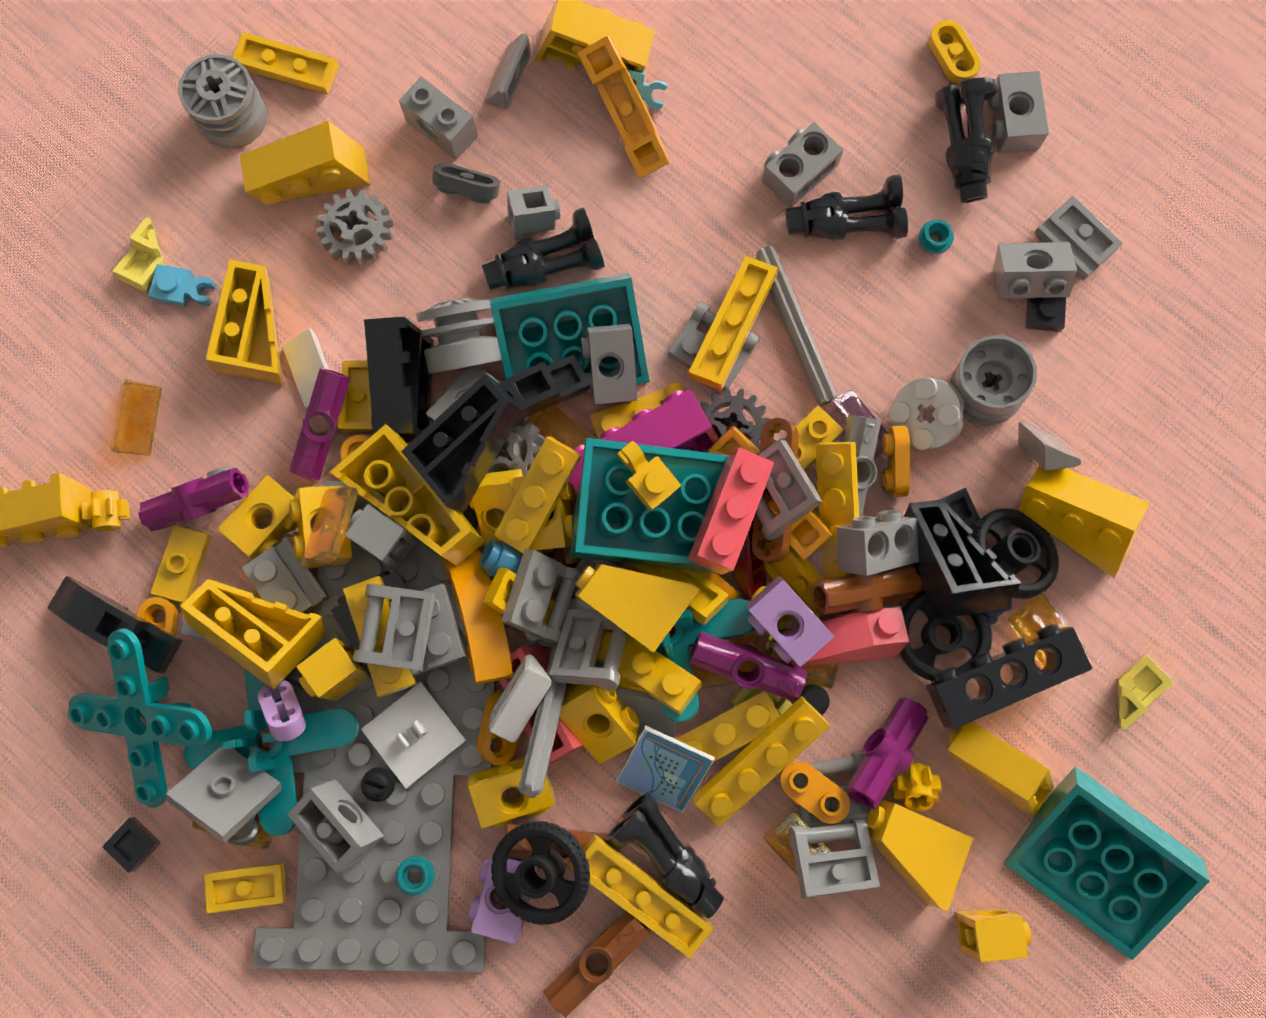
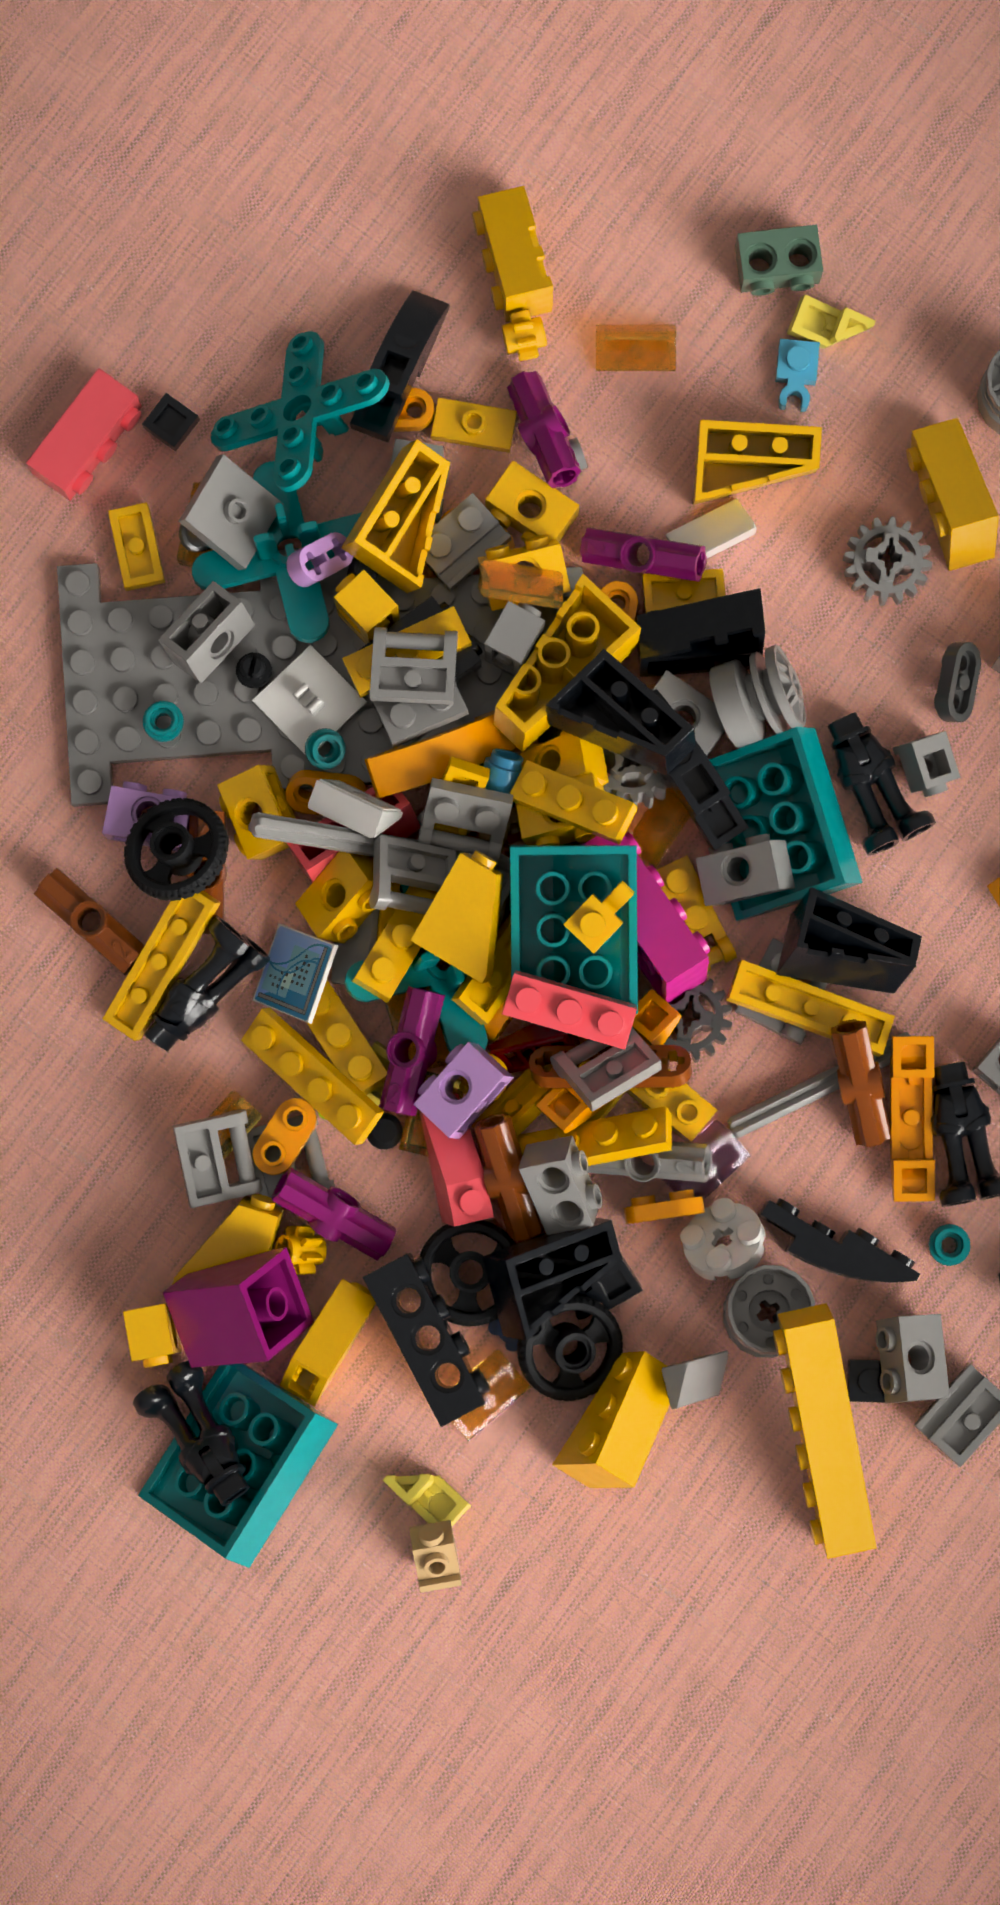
camera: 85 degrees right, 5 degrees up
(69, 290) = (775, 248): none -> sand green brick
(129, 930) = (85, 435): none -> coral brick
(463, 713) = (336, 752): none -> teal plate
(682, 287) = (846, 946): none -> black wedge
(800, 286) = (860, 1083): none -> dark orange piece
(831, 258) = (911, 1118): none -> light orange slope
(940, 322) = (851, 1257): none -> black slope
(980, 848) = (239, 1310): none -> magenta slope
(1099, 338) = (825, 1429): none -> yellow brick
(1110, 888) = (213, 1453): none -> black piece
(1196, 687) = (435, 1556): none -> tan brick

